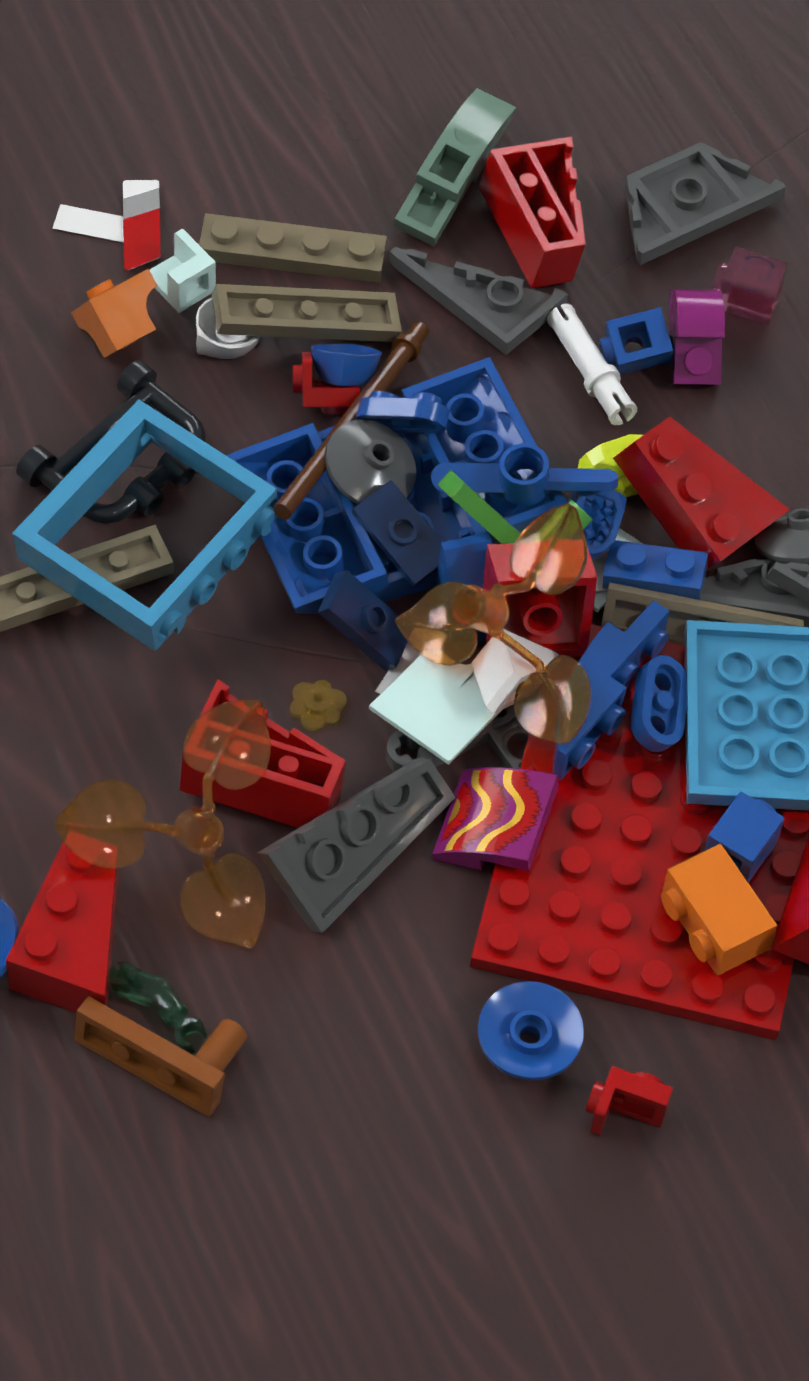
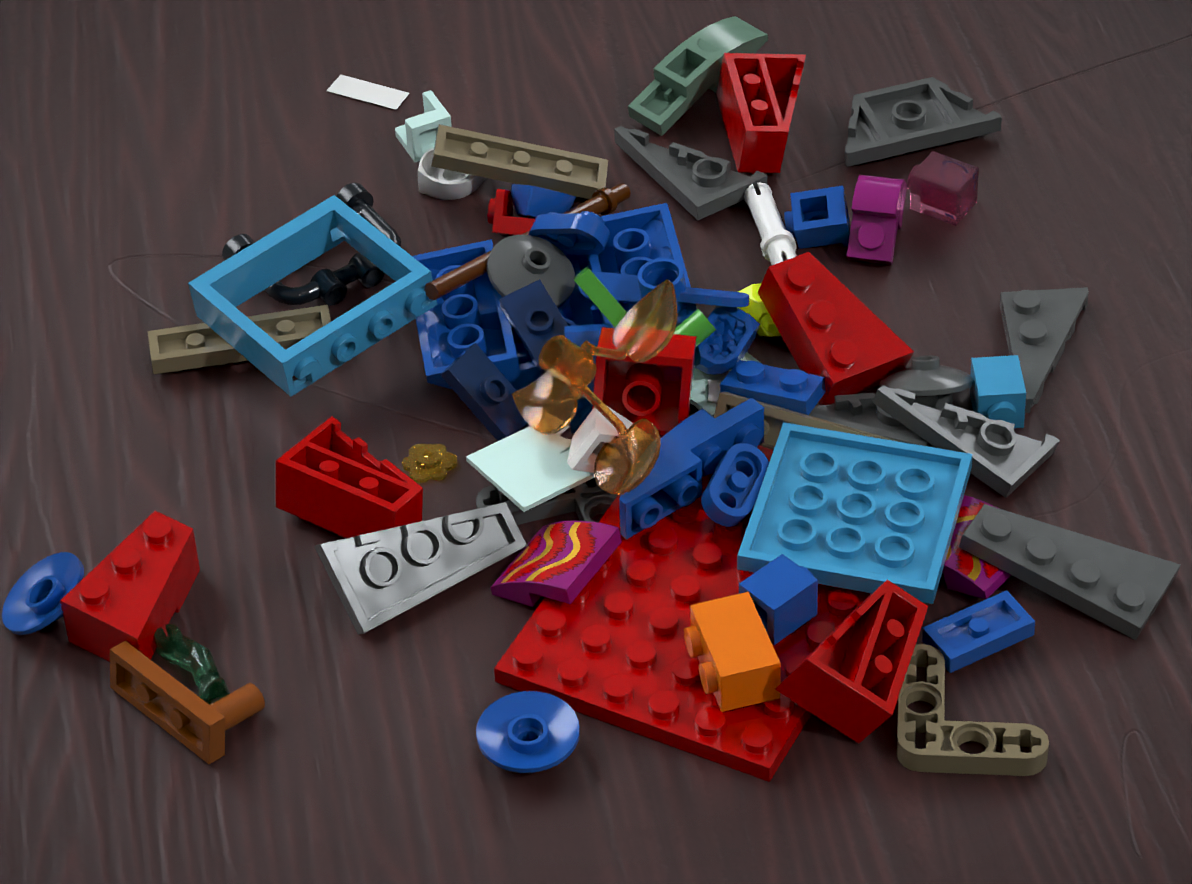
camera: 20 degrees right, 15 degrees down
(108, 823) = (184, 493): clear orange plant -> none
(117, 313) = (350, 146): orange brick -> none
(141, 222) = (405, 92): sticker -> none
(293, 247) = (533, 123): dark tan plate -> none
(630, 1094) = (602, 796): red bracket -> none

